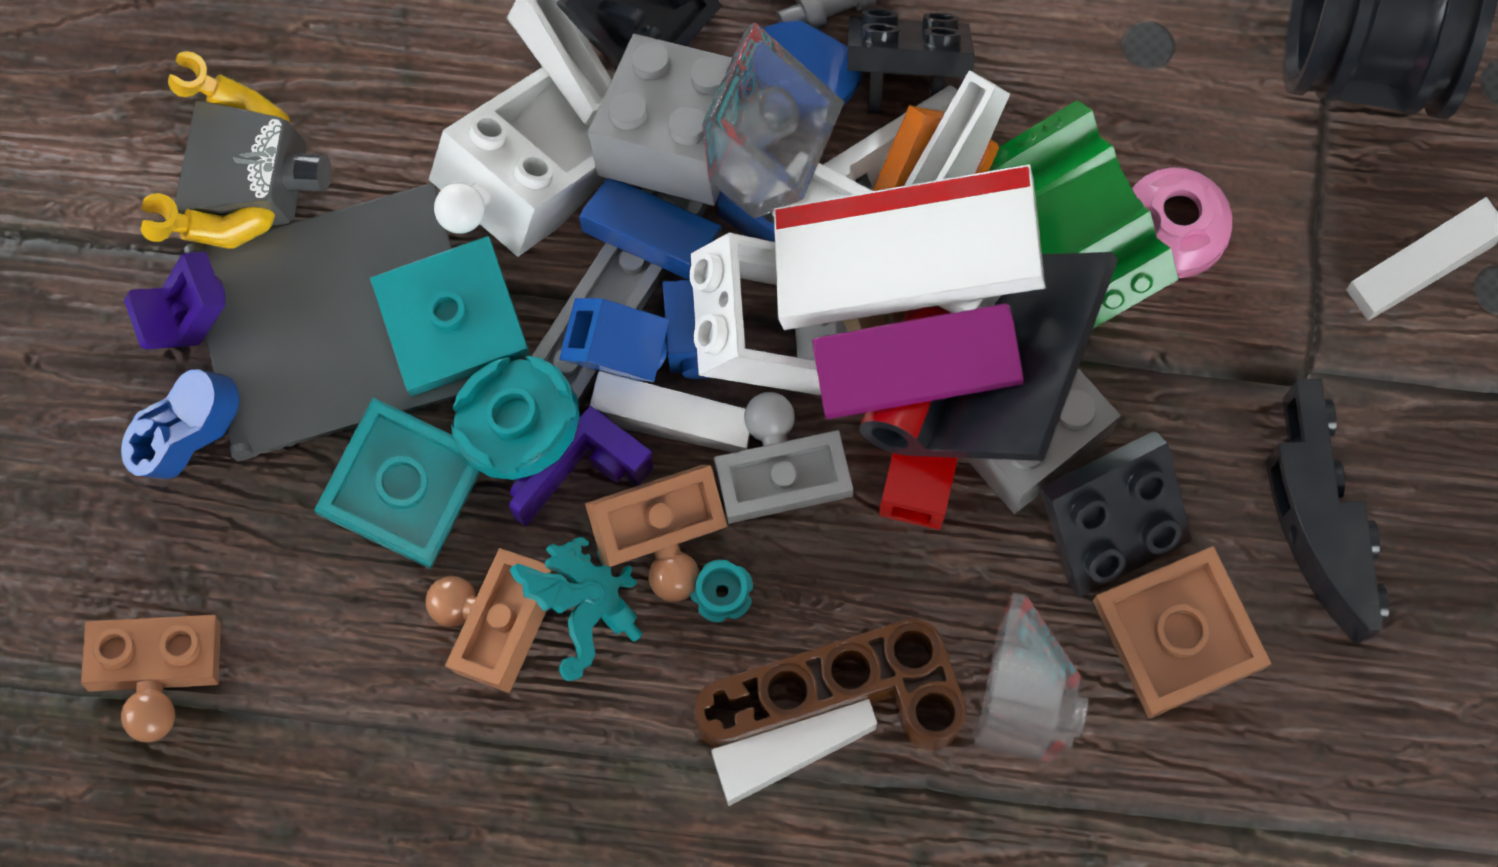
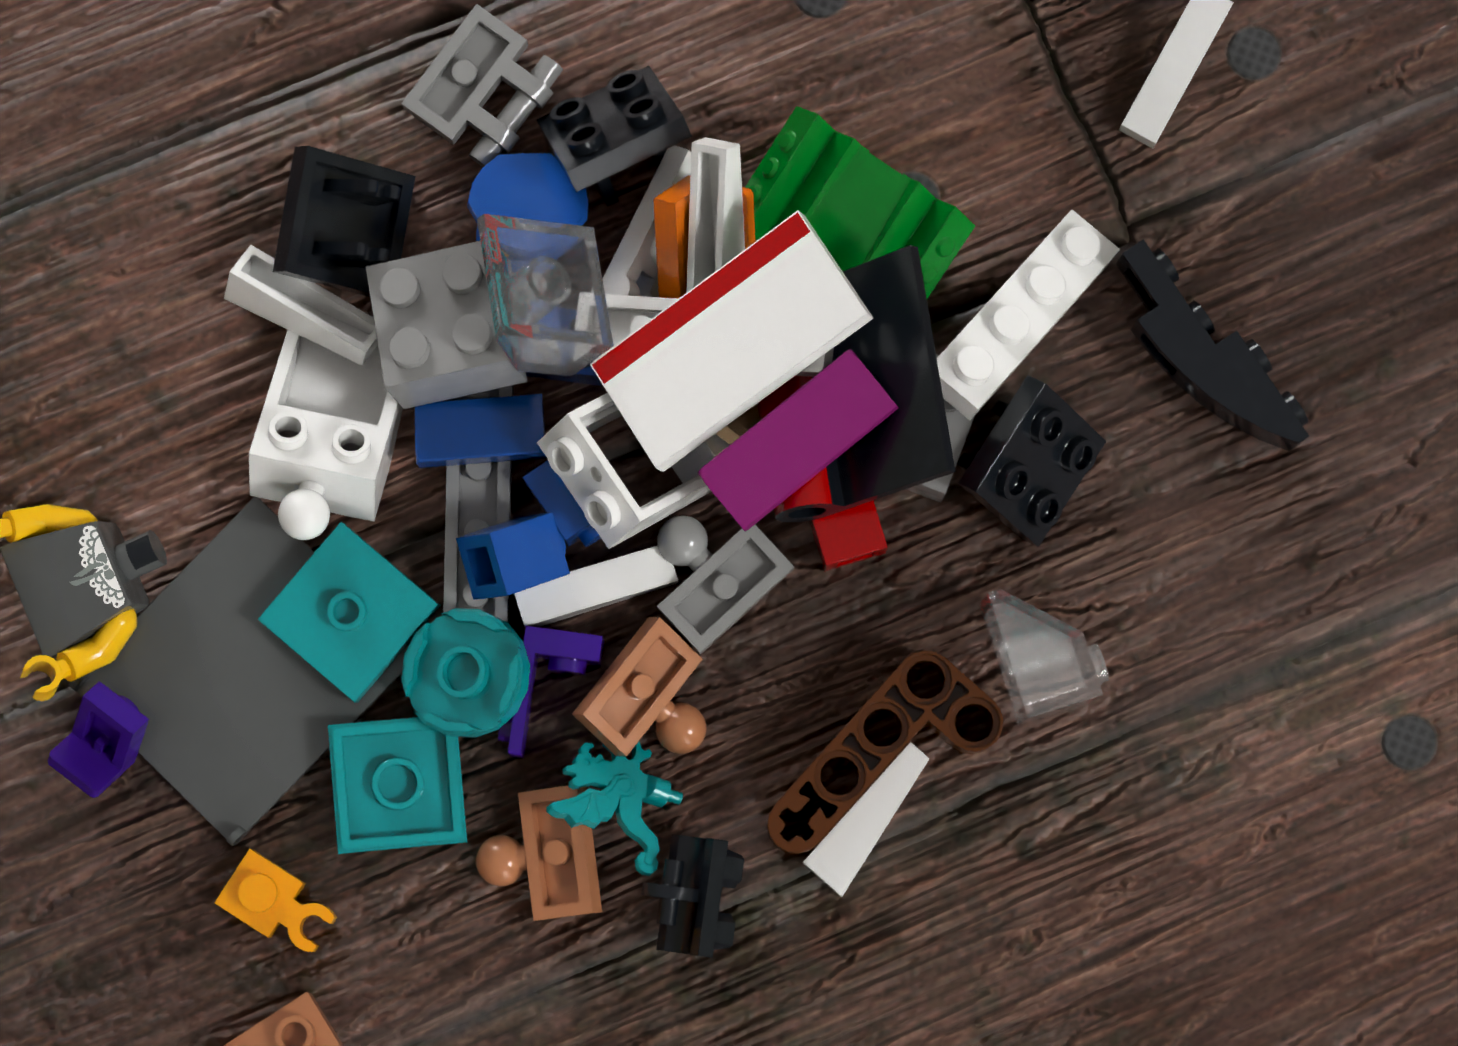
camera: 30 degrees left, 10 degrees up
(171, 430) = (170, 844): blue piece -> none
(233, 518) = (266, 896): none -> light orange plate
(594, 720) = (692, 896): none -> black hips
(726, 574) = (742, 705): teal plate -> none
(1176, 382) = (1022, 313): none -> white plate
(1181, 632) = (1140, 529): nougat plate -> none
(1194, 245) = (953, 181): bright pink piece -> none

